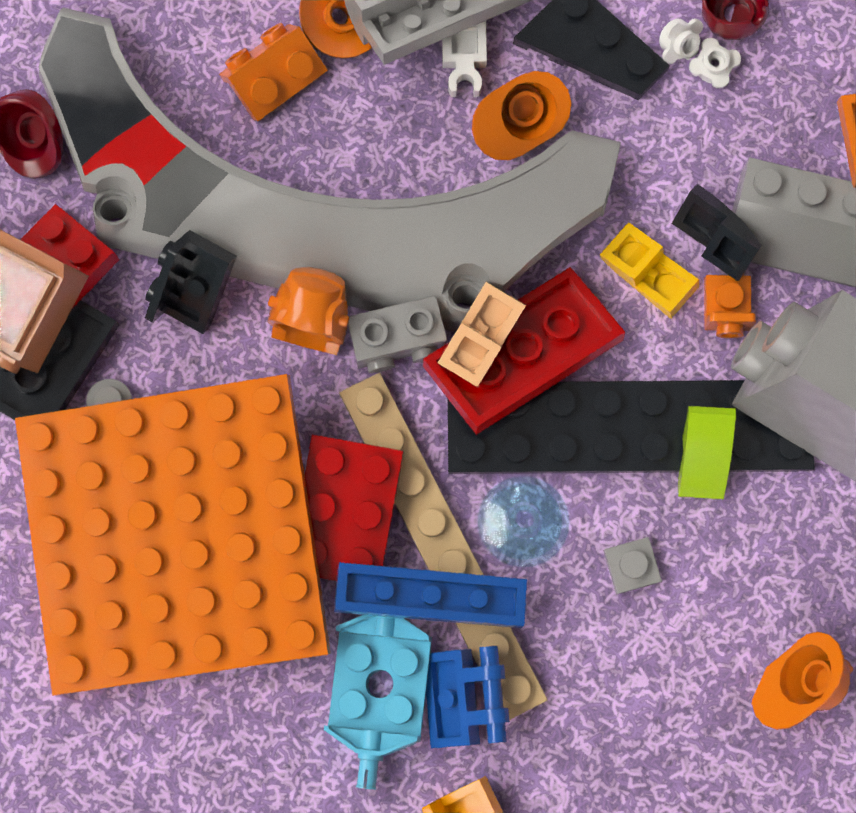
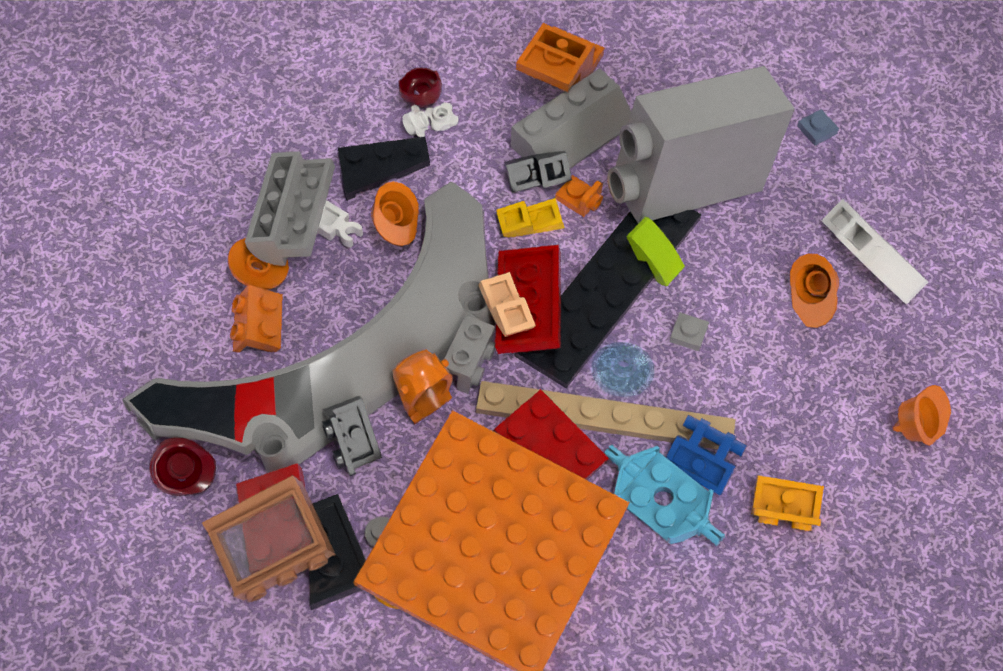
camera: 55 degrees left, 20 degrees down
(430, 595) = (634, 429): blue plate -> none

